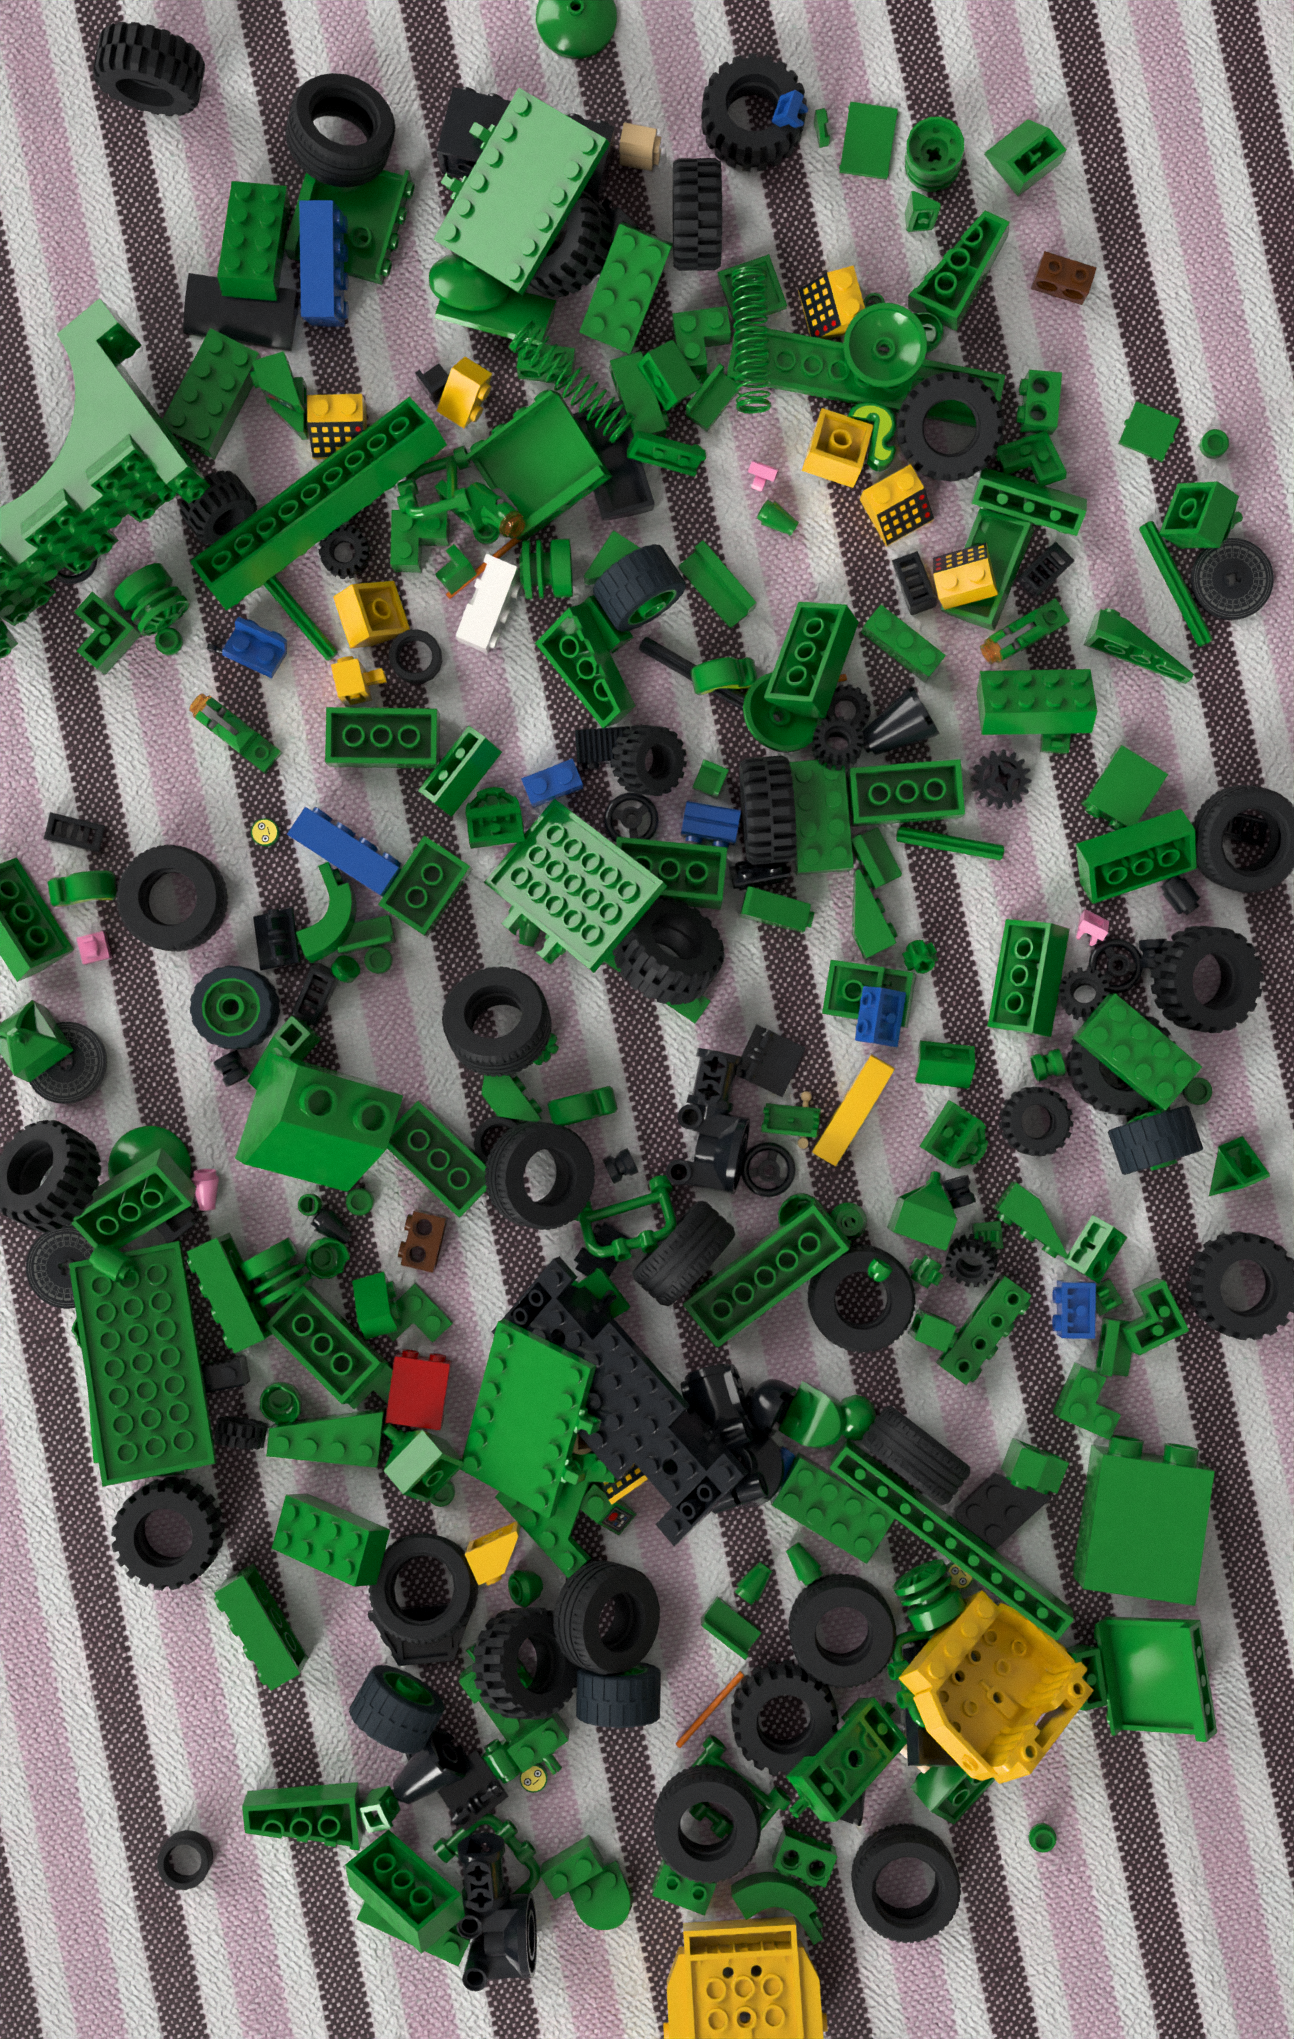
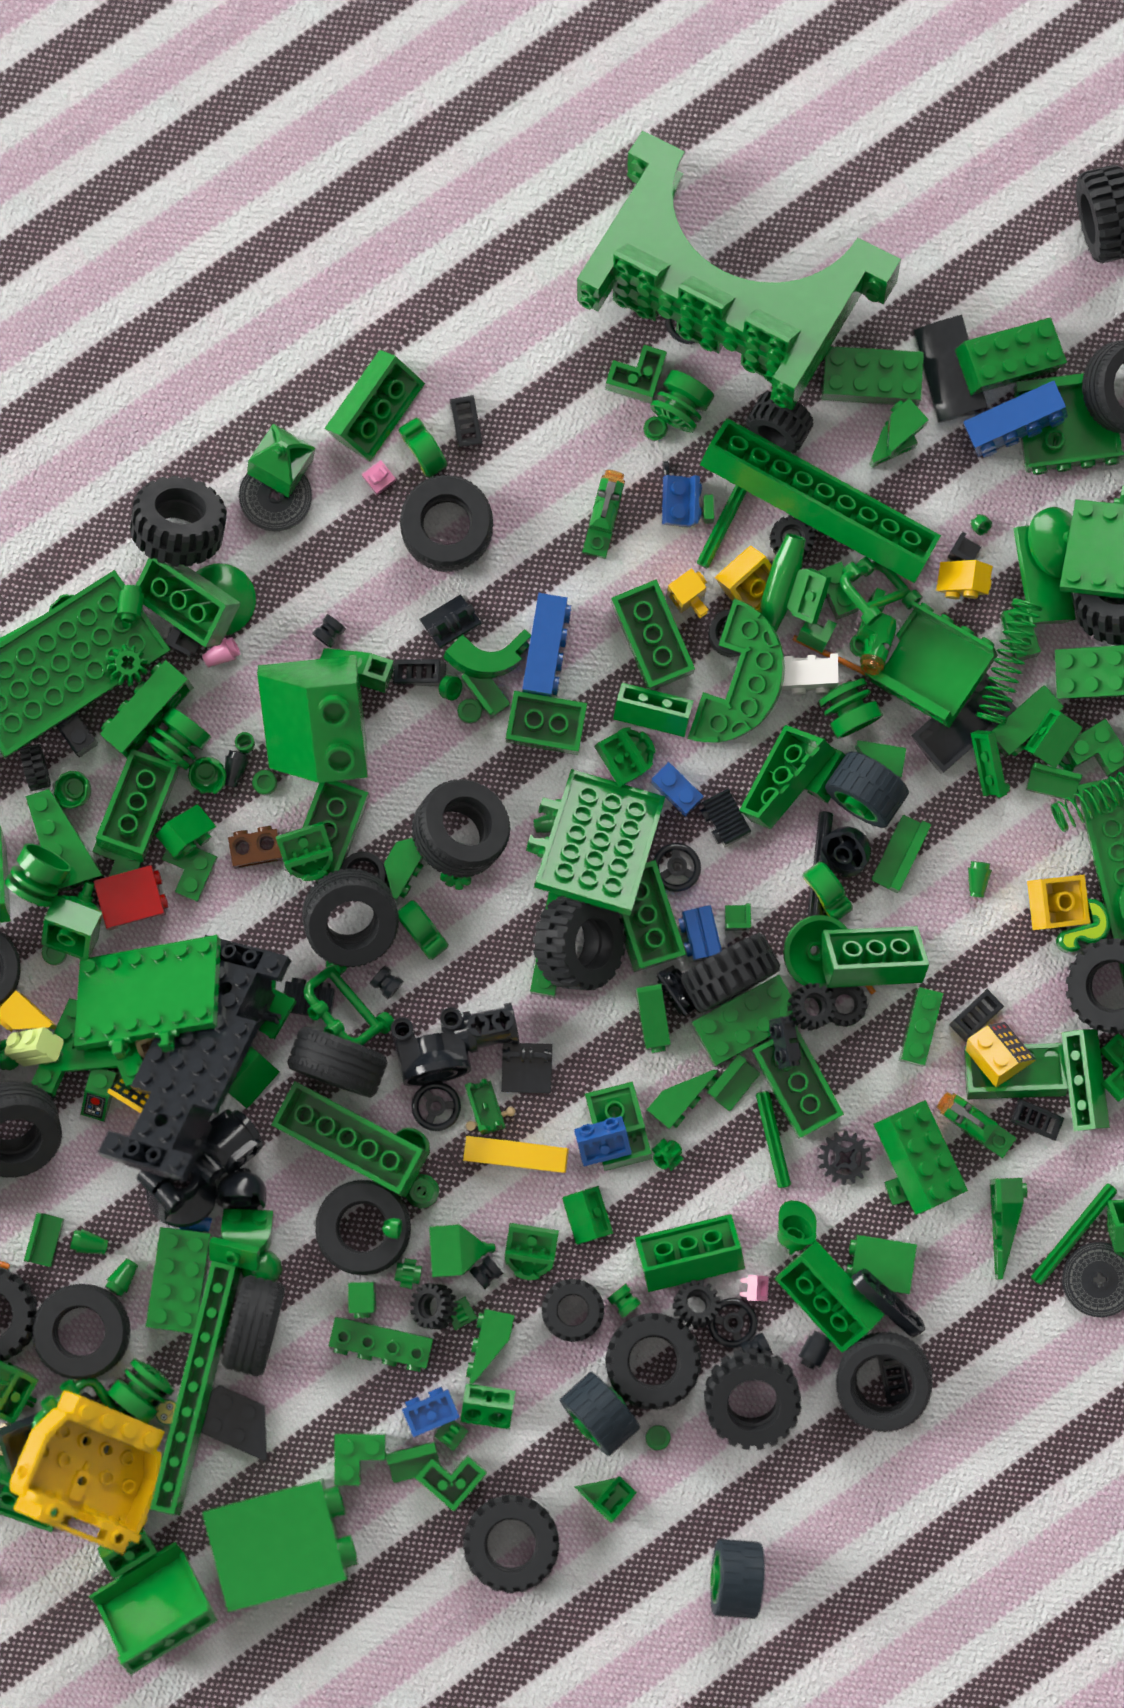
camera: 65 degrees right, 5 degrees down
(45, 1263) = (104, 550): black piece -> none
(179, 1283) = (124, 674): none -> green gear
(213, 1007) = (376, 593): wheel -> none
(265, 832) = (533, 574): tile -> none
(276, 623) = (708, 509): none -> green tile
(334, 421) = (893, 484): yellow slope -> none
(354, 1481) = (37, 875): none -> green wheel
(396, 571) = (793, 587): none -> green plate
(415, 352) = (981, 524): none -> green hinge
(452, 1191) = (306, 852): none -> green slope
(478, 654) = (754, 683): none -> green plate
(530, 1558) = (33, 1046): none -> yellowish green brick
(631, 756) = (734, 875): black tyre -> none
(658, 1344) = (252, 1078): none -> green slope
(692, 638) = (846, 851): none -> black cylinder
(762, 473) = (1010, 850): bright pink tile -> none
(832, 1442) = (234, 1253): none -> green plate
(874, 790) = (782, 1030): none -> black hinge
(897, 505) = (1033, 973): yellow slope -> none
(899, 725) = (852, 1054): black cone -> none
(1033, 1467) = (285, 1434): green brick -> none
(1049, 858) = (796, 1226): none -> green piece
(1137, 1052) = (664, 1362): green brick -> none
(1168, 799) = (888, 1303): none -> black beam

